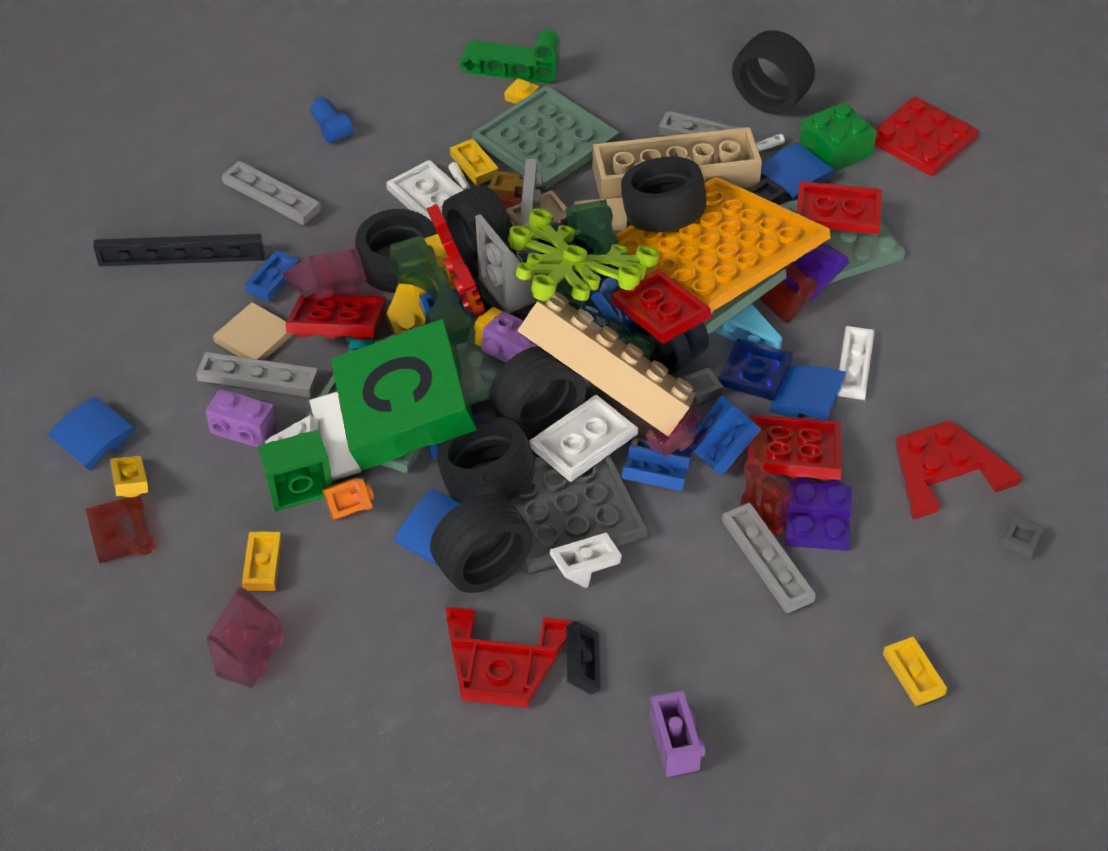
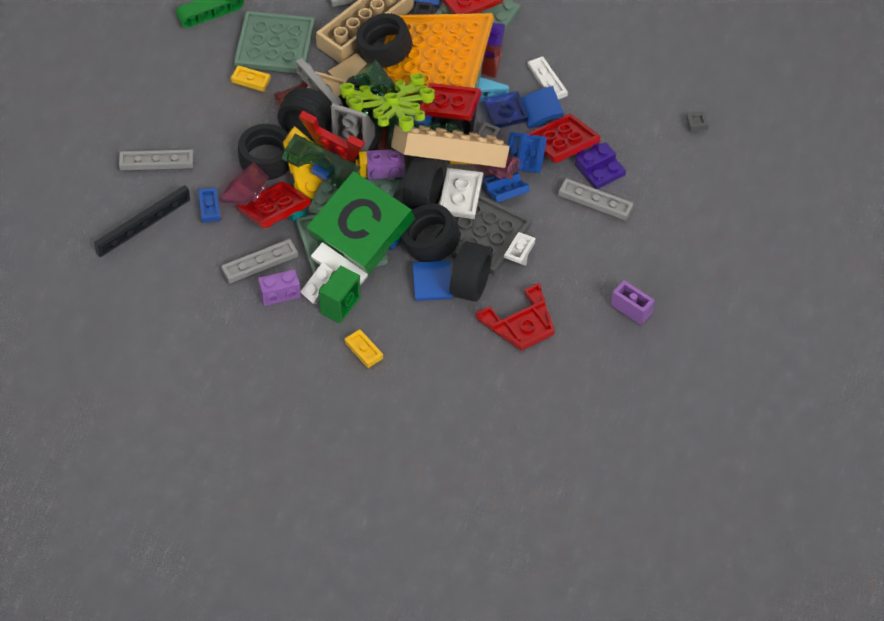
camera: 40 degrees left, 5 degrees up
(91, 432) = (204, 343): blue slope -> none
(109, 532) = (272, 383): clear red plate -> none
(129, 476) = (254, 350): yellow plate -> none
(244, 639) = (401, 387): clear pink slope -> none
(253, 333) = (232, 241): tan tile -> none
(332, 123) = (148, 101): blue piece -> none
(348, 497) = (375, 292): orange bracket -> none
(423, 187) = (244, 110): white tile -> none
(458, 175) = (249, 92): white pin -> none
(506, 184) = (283, 81): pearl gold plate -> none
(519, 90) = (233, 23): yellow plate -> none
(583, 657) = (554, 293): black plate -> none
(770, 500) = (580, 169): clear red plate -> none
(914, 671) = (704, 211): yellow plate -> none
(942, 454) = (626, 103): red wing -> none

